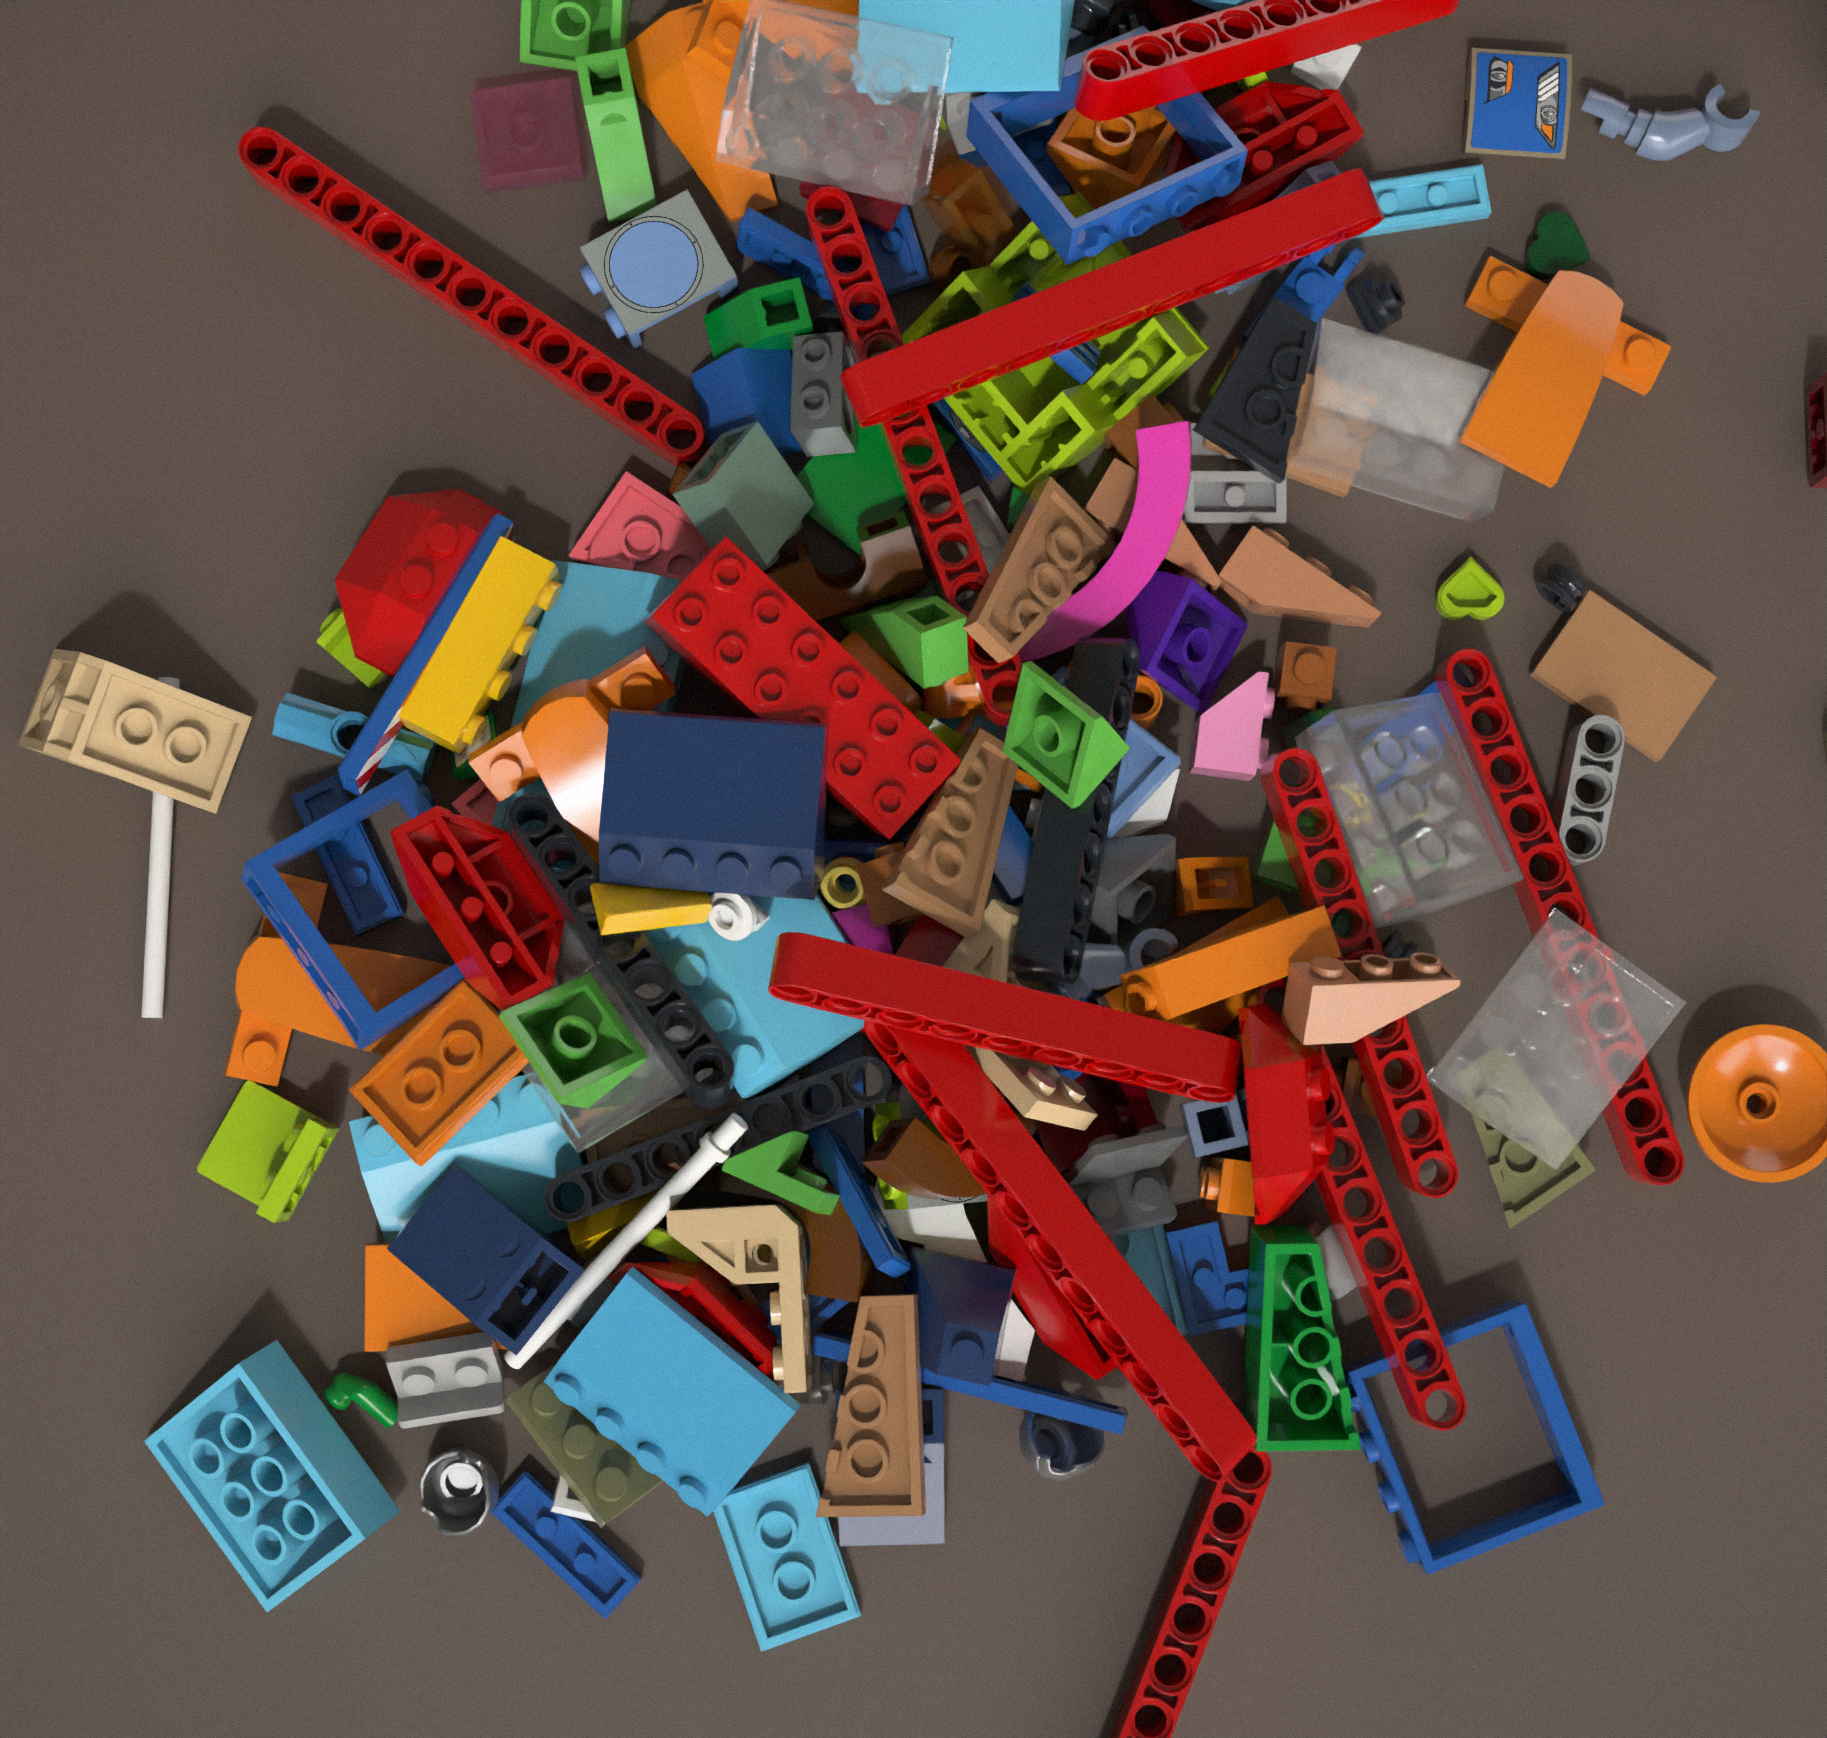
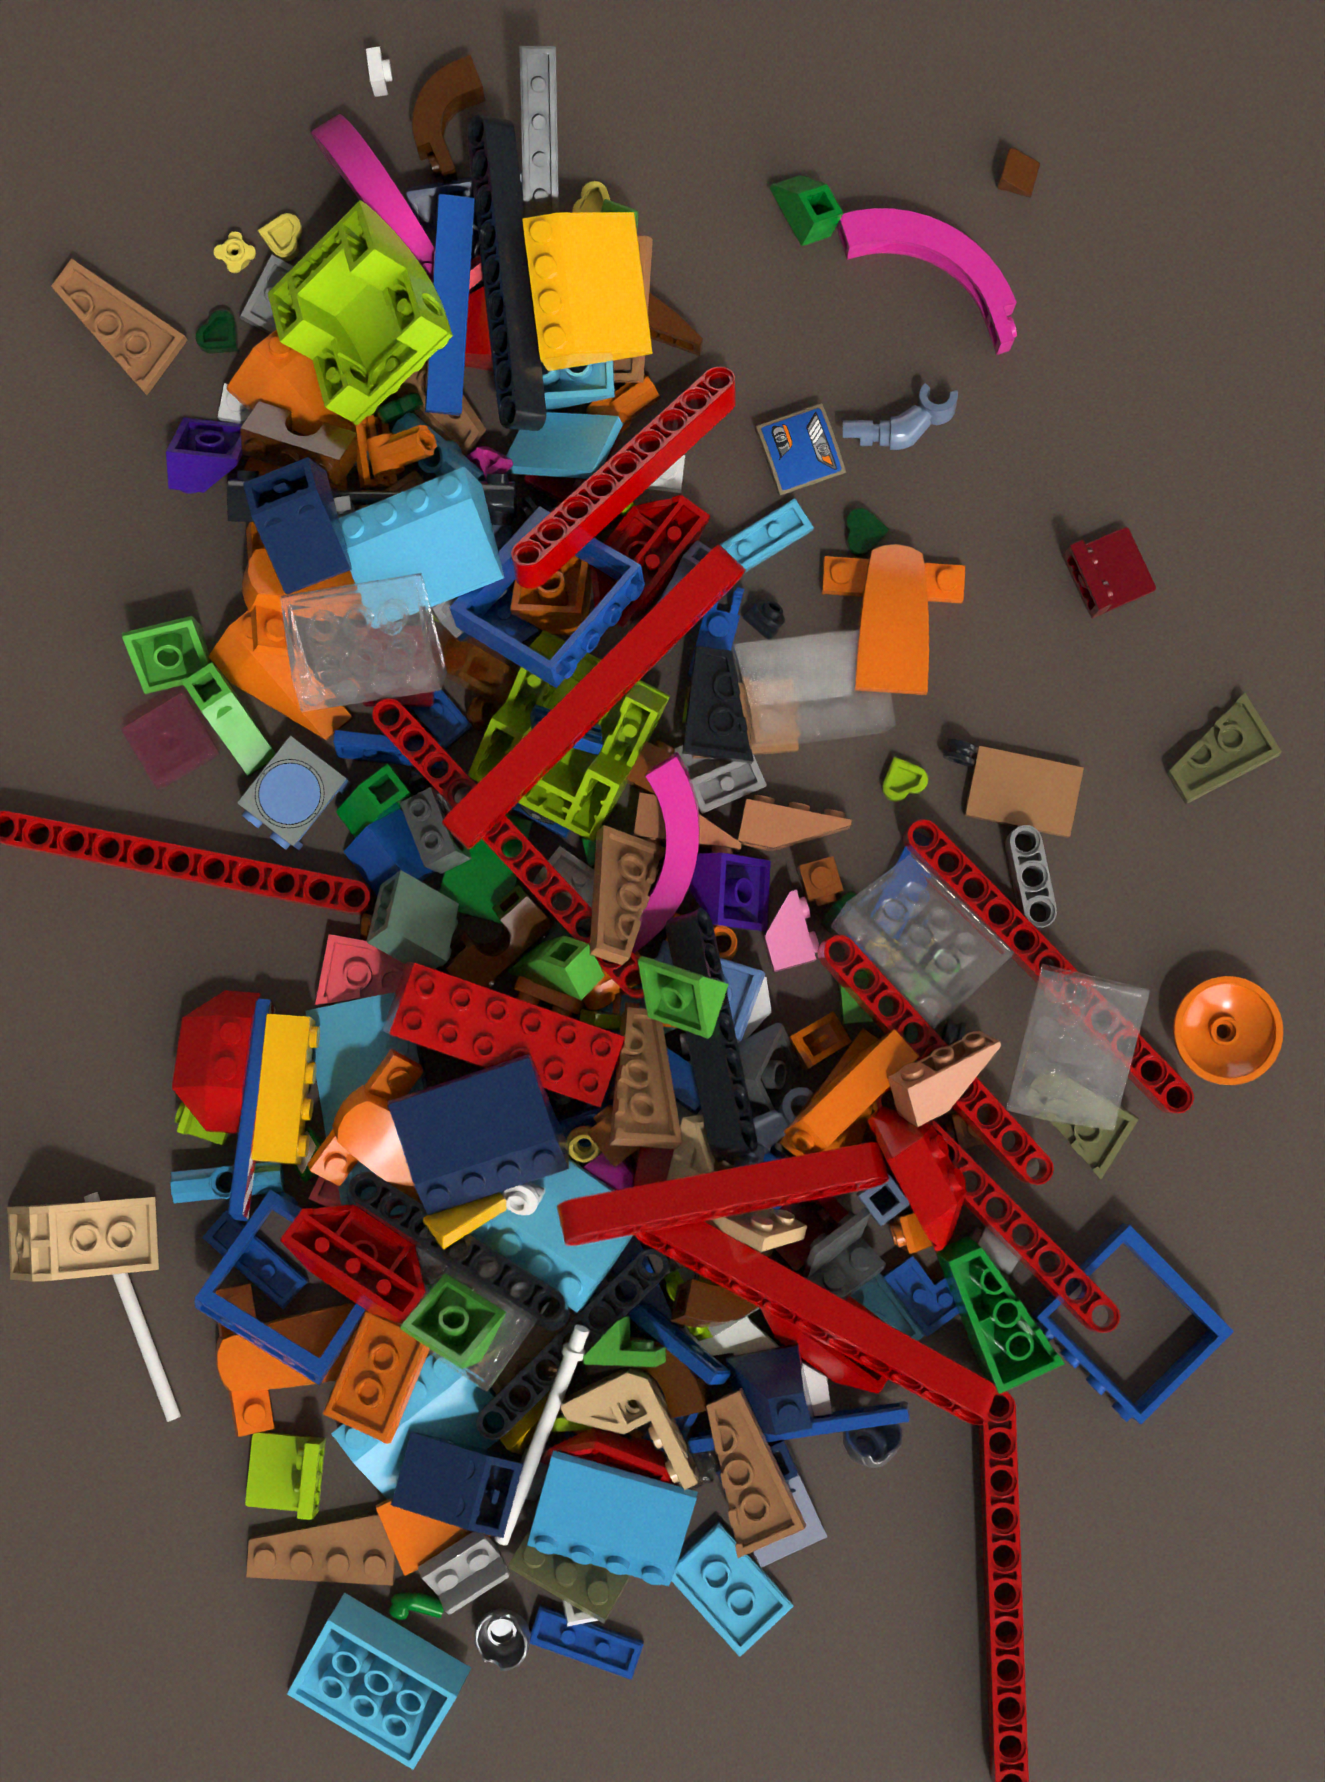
camera: 15 degrees left, 0 degrees up
(281, 1279) = (329, 1552): none -> medium nougat wing

